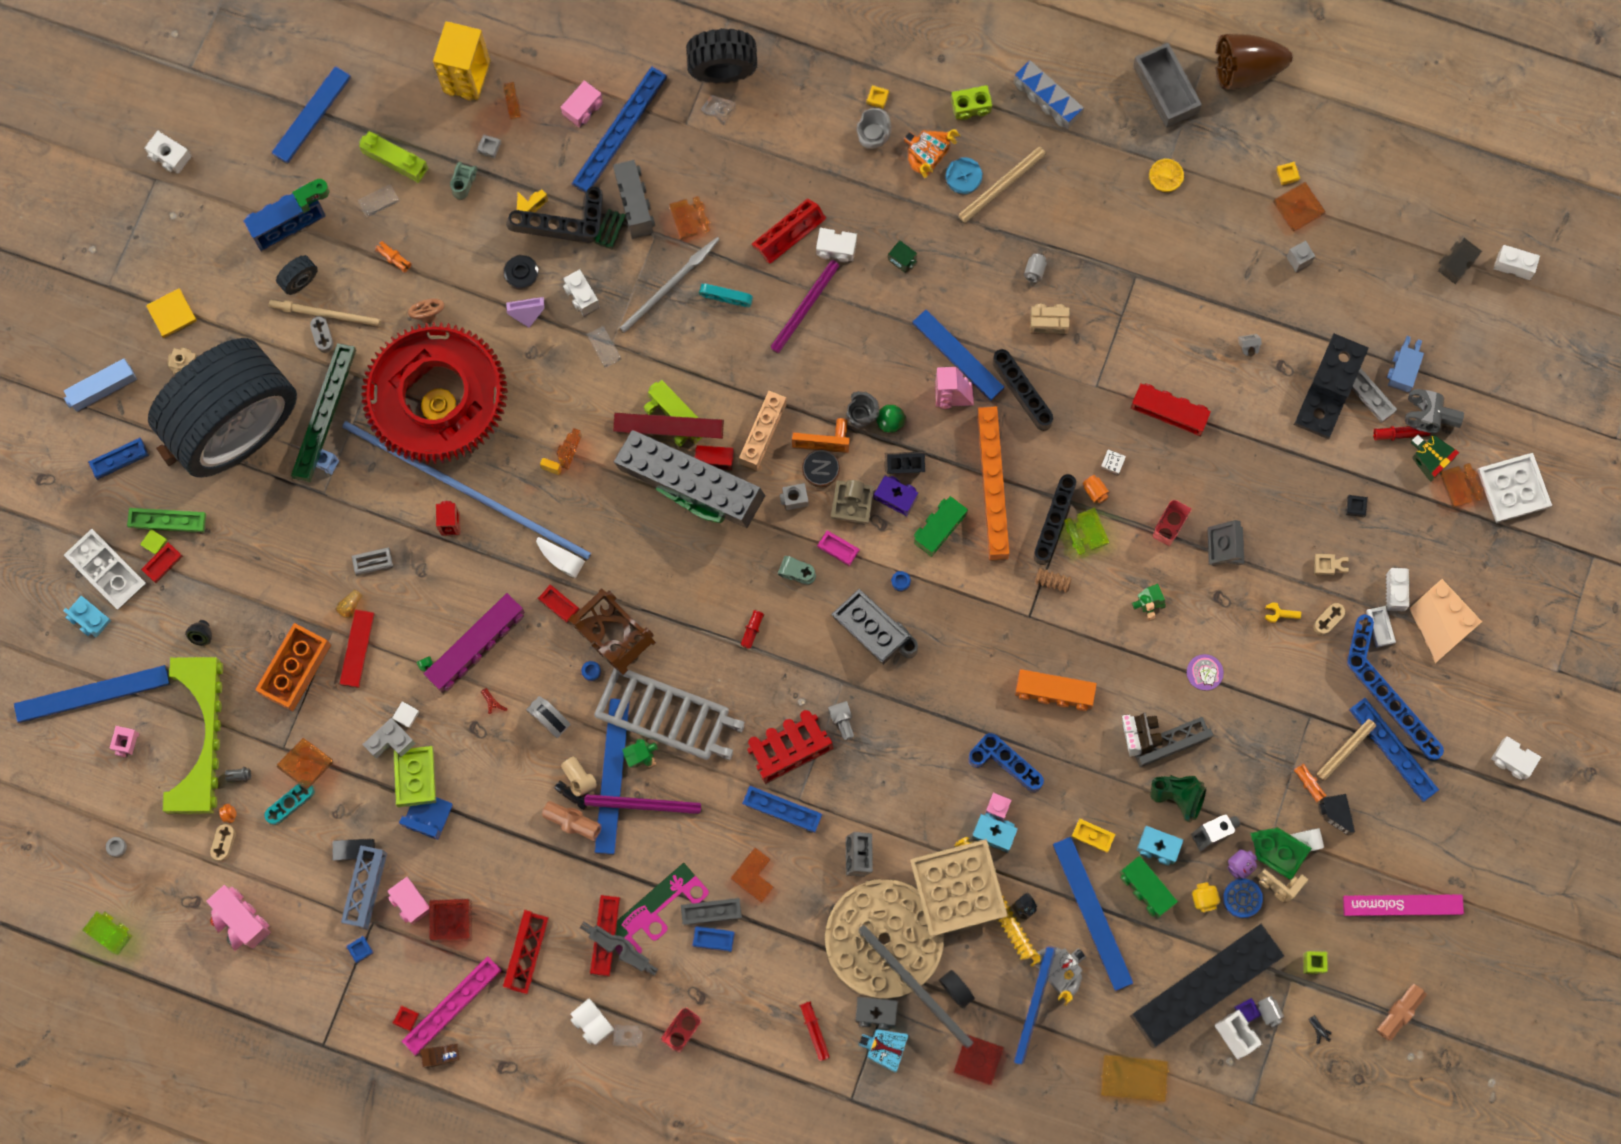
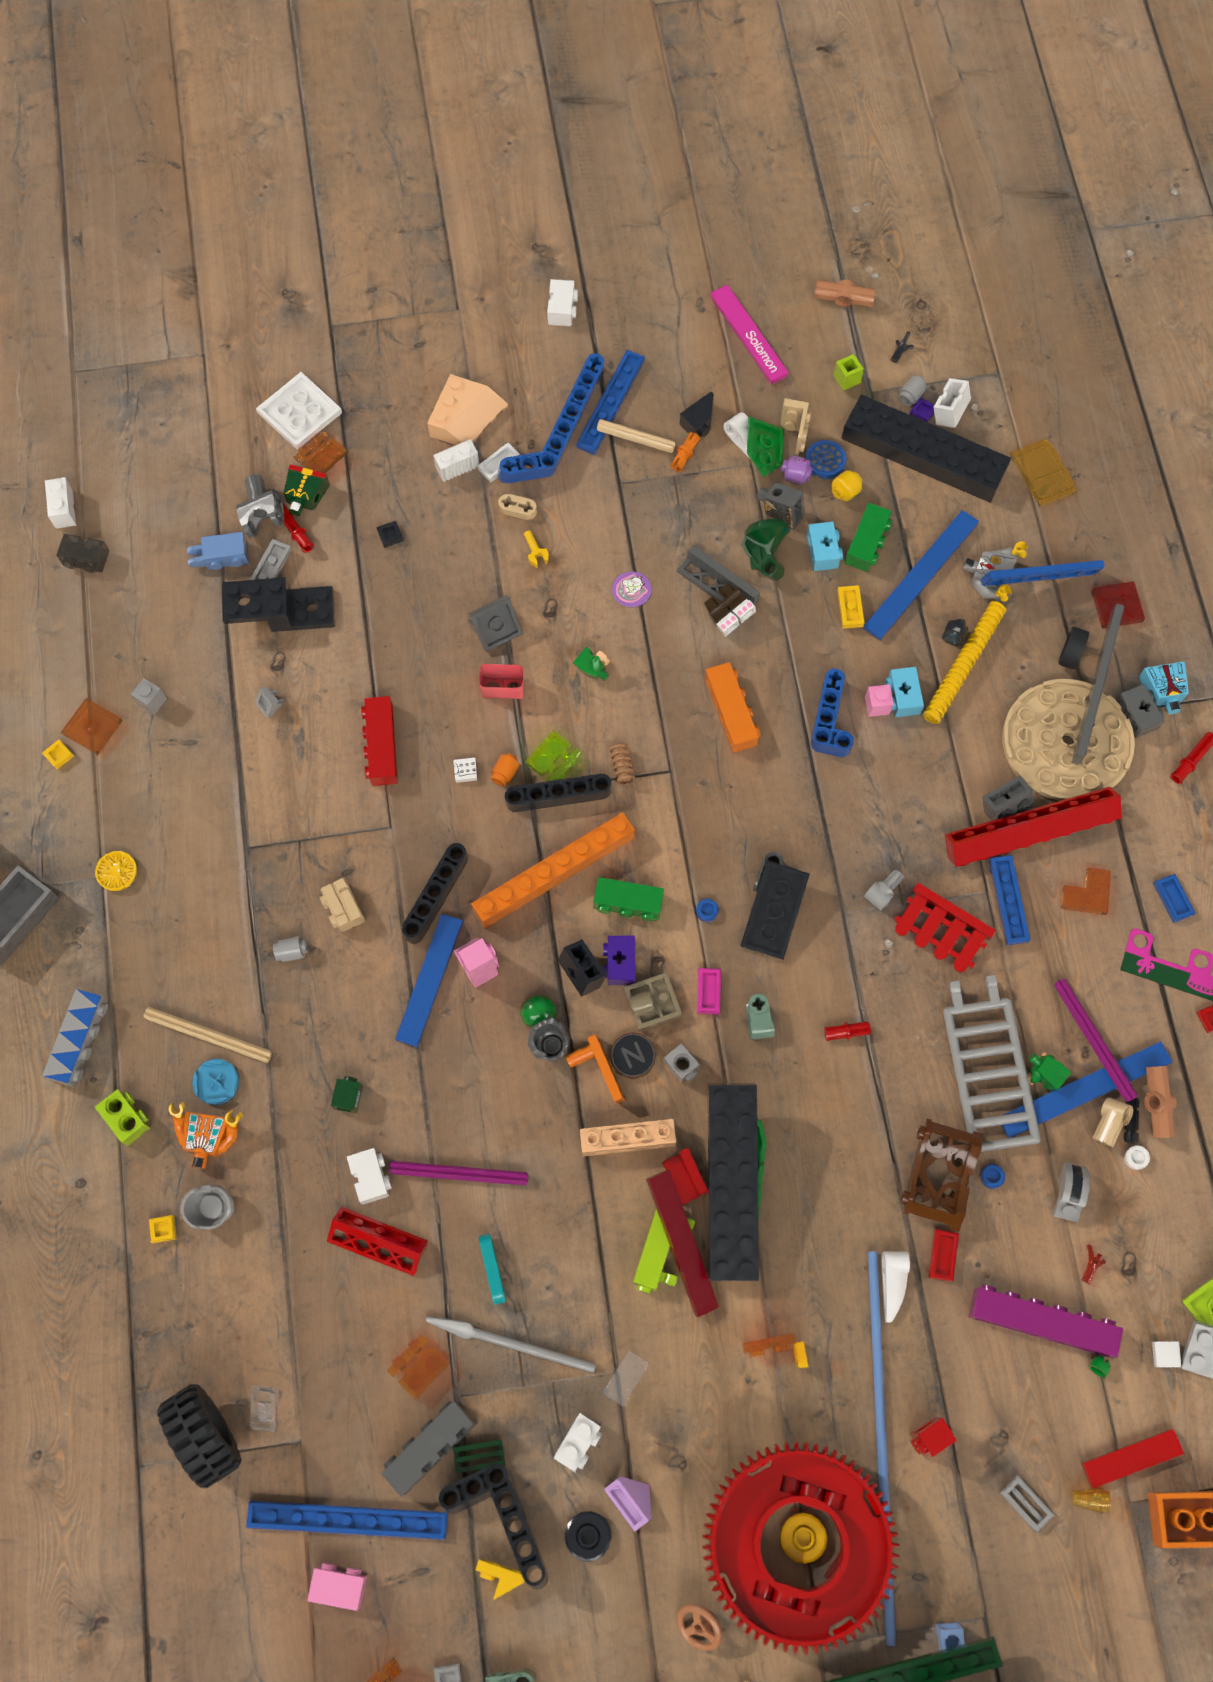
camera: 120 degrees left, 5 degrees down
(544, 782) = (1136, 1157): none -> white tile
(711, 911) = (1152, 913): dark grey plate -> none
(827, 861) = (1033, 826): none -> red brick
(958, 888) = (982, 691): tan plate -> none
(1326, 564) = (463, 530): tan plate -> none

